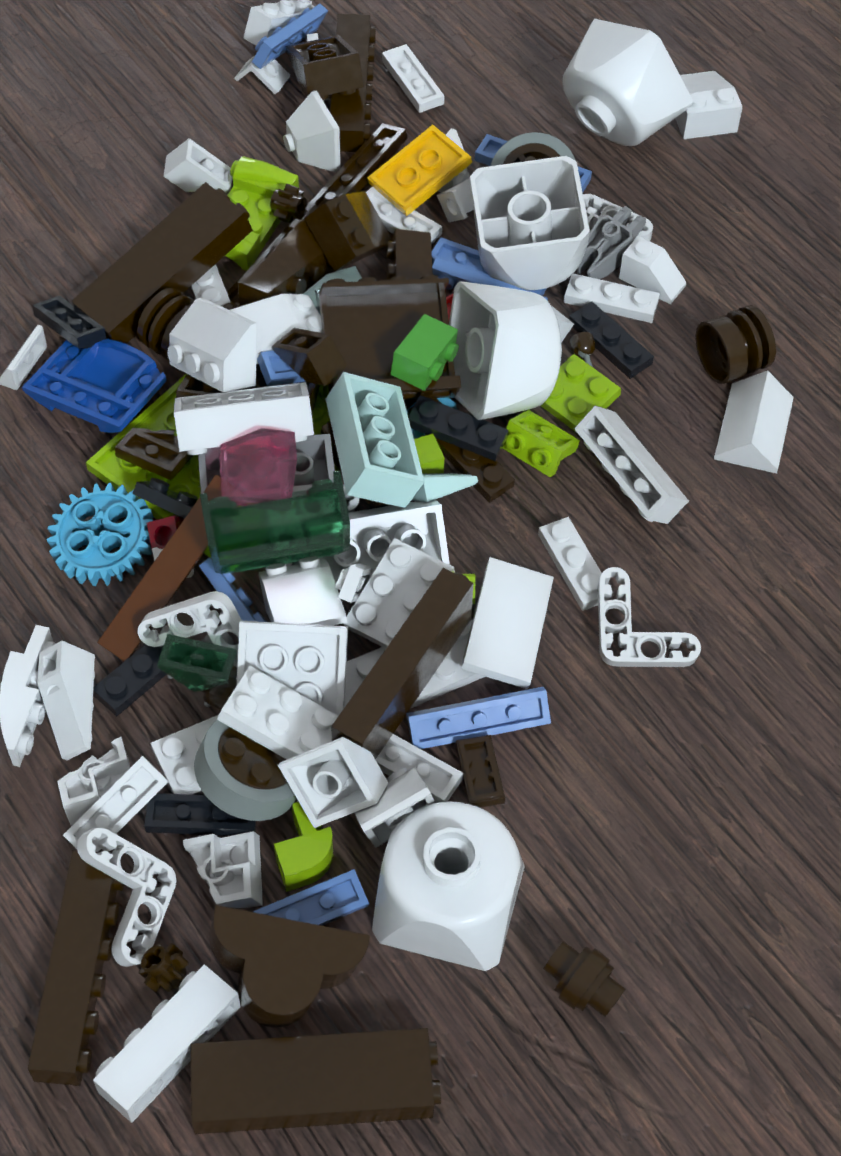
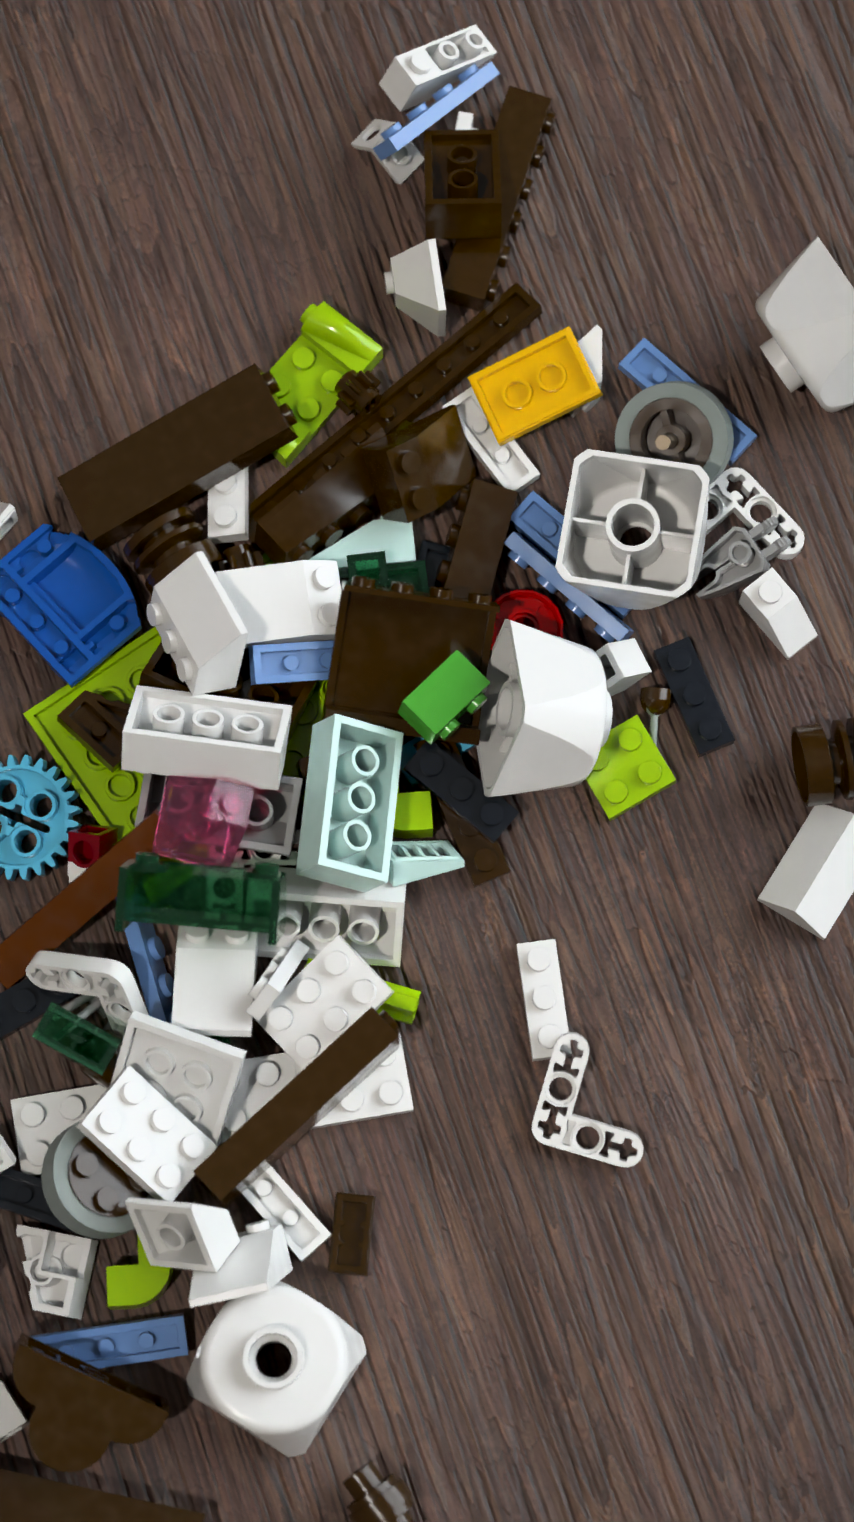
camera: 15 degrees right, 20 degrees up
(69, 322) = (48, 505): black plate -> none
(159, 494) = (102, 802): black plate -> none
(192, 166) = (262, 299): white slope -> none
(311, 355) = (306, 668): dark brown slope -> none
(413, 78) = (579, 211): white plate -> none
(457, 201) = (575, 435): white bracket -> none
(479, 718) = (369, 1171): medium blue plate -> none
(508, 623) = (439, 1062): white tile -> none
(538, 442) = (556, 827): lime bracket -> none
(612, 297) = (717, 635): white plate -> none
(631, 465) = (648, 894): white brick -> none

